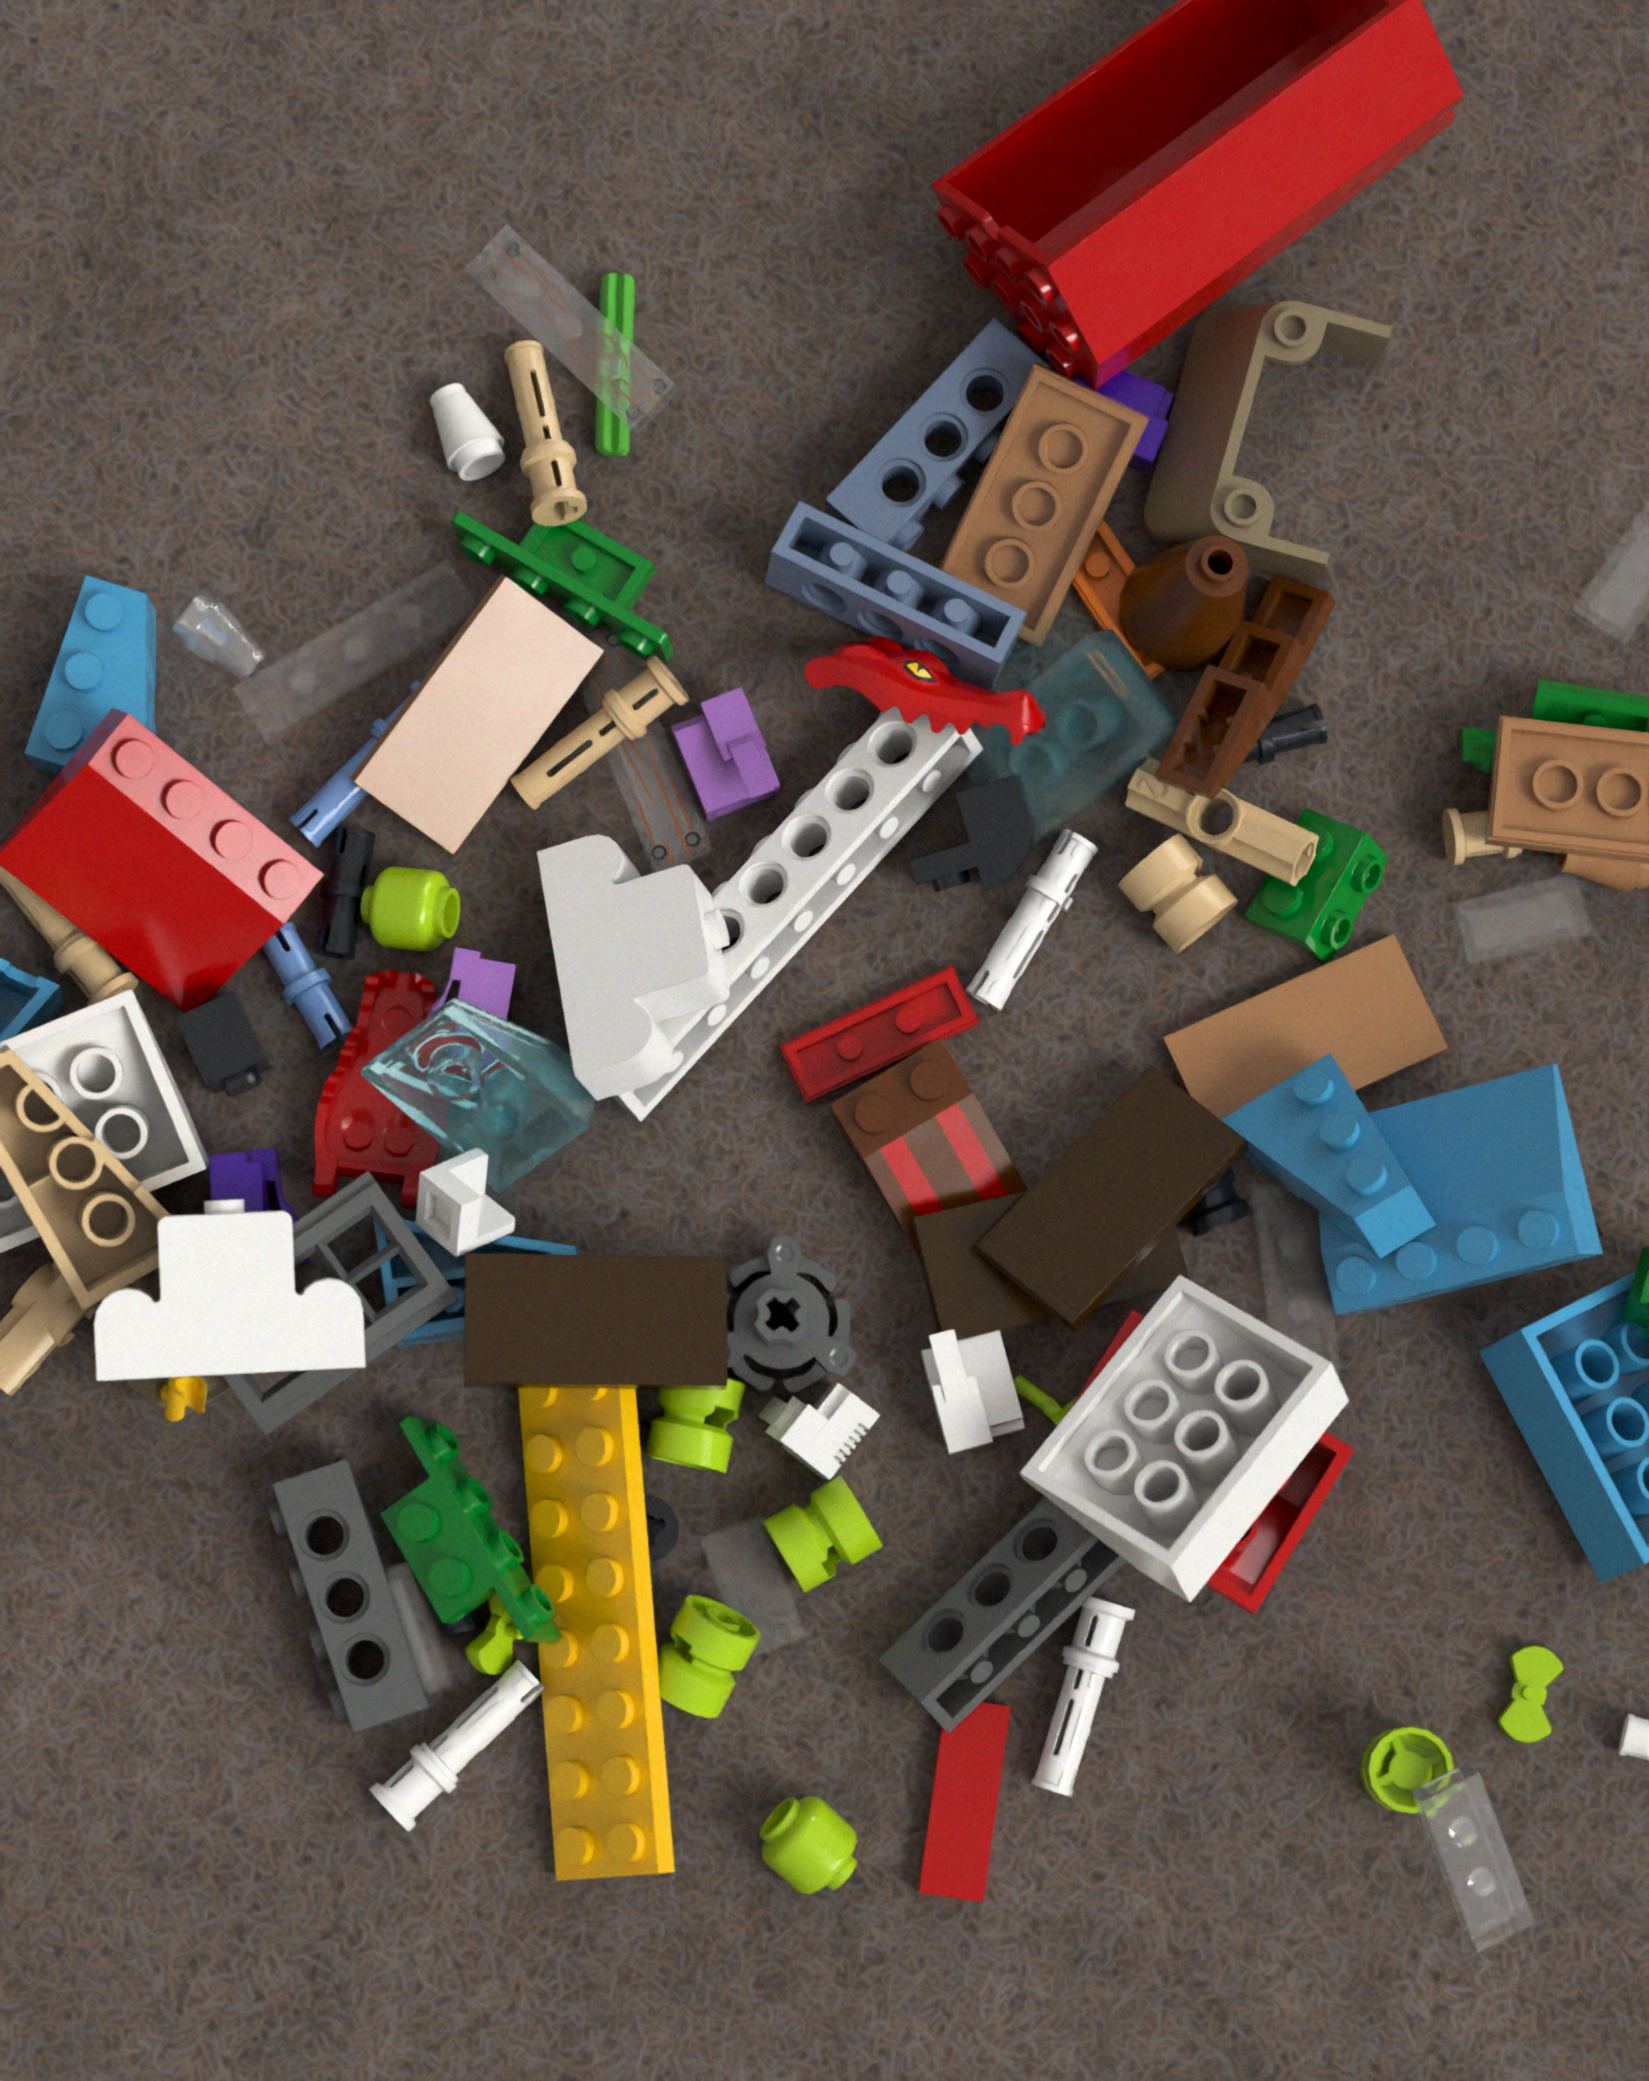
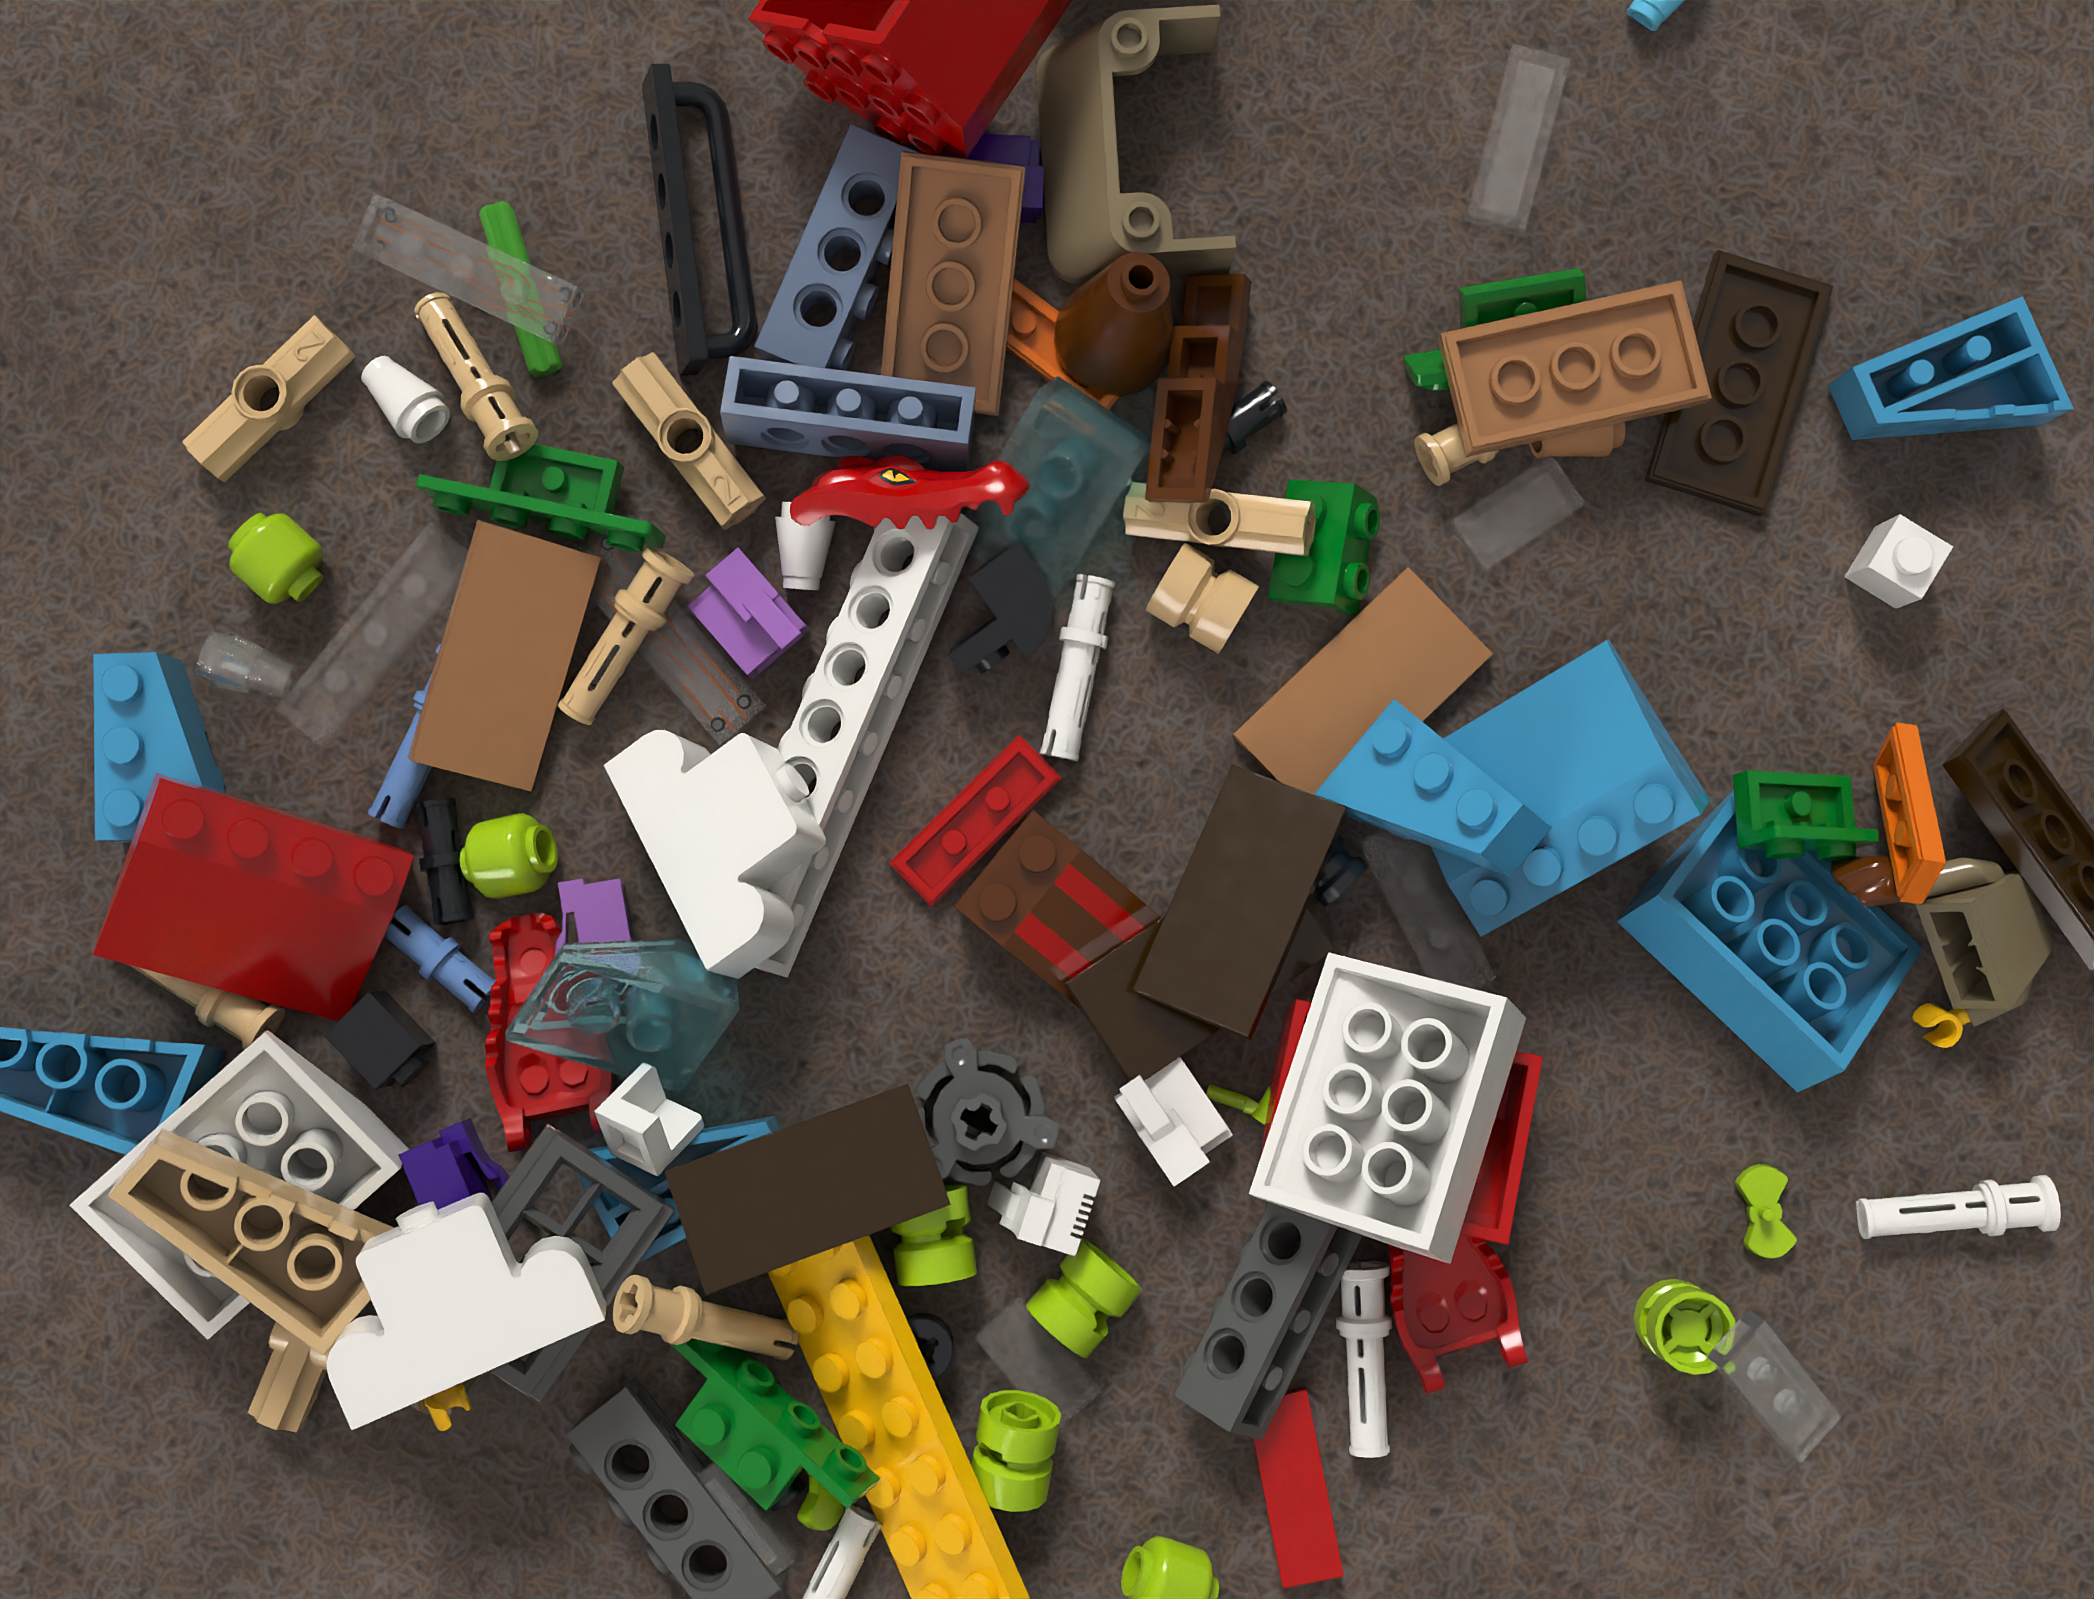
camera: 20 degrees left, 5 degrees up
(287, 543) = (276, 558): none -> lime head
(372, 368) = (239, 425): none -> tan piece
(430, 1405) = (683, 1315): none -> tan pin
(718, 532) = (667, 413): none -> tan piece
(764, 471) = (660, 103): none -> black piece
(802, 710) = (802, 550): none -> white cone
(1184, 1665) = (1453, 1306): none -> red animal

